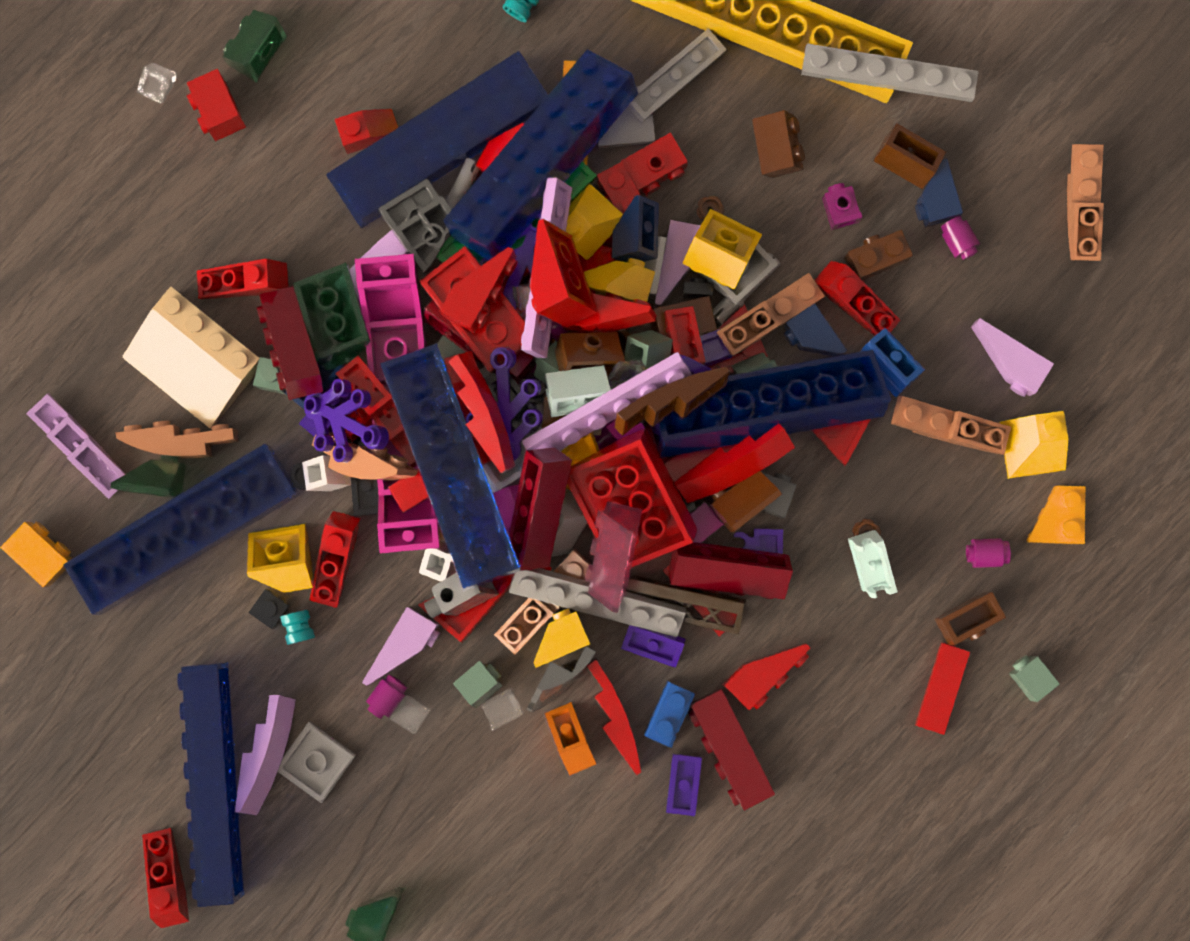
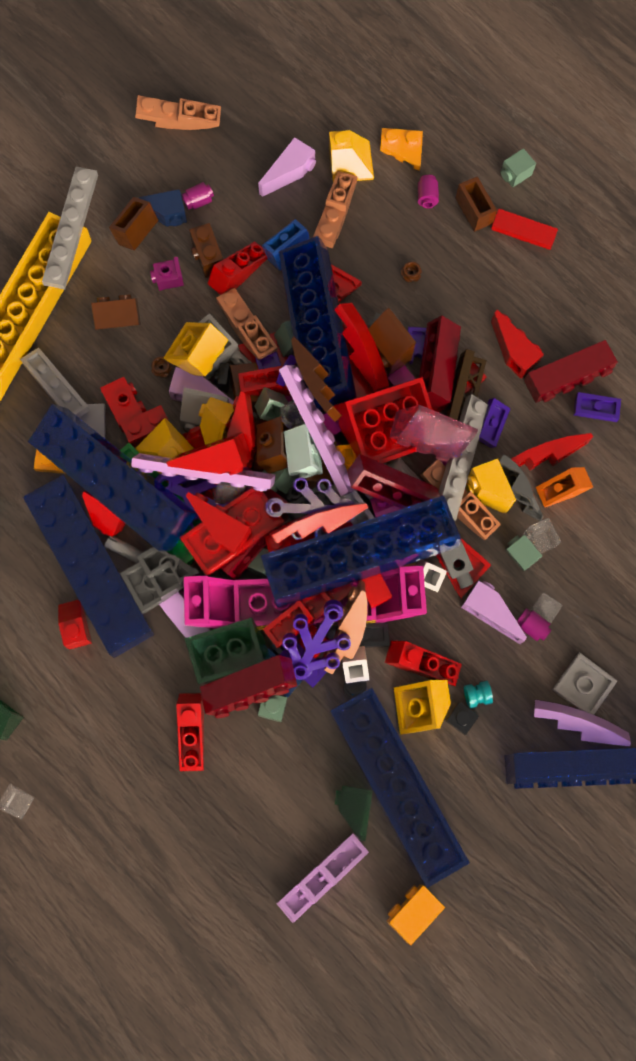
camera: 90 degrees left, 10 degrees down
(166, 439) = (321, 801): nougat slope -> none
(191, 358) = (253, 776): slope -> none
(215, 104) = (40, 747): red brick -> none
(637, 231) = (178, 410): dark blue slope -> none
(669, 714) = (545, 413): blue brick -> none
(813, 333) = (262, 296): dark blue slope -> none
(872, 563) = (435, 265): light aqua hinge -> none

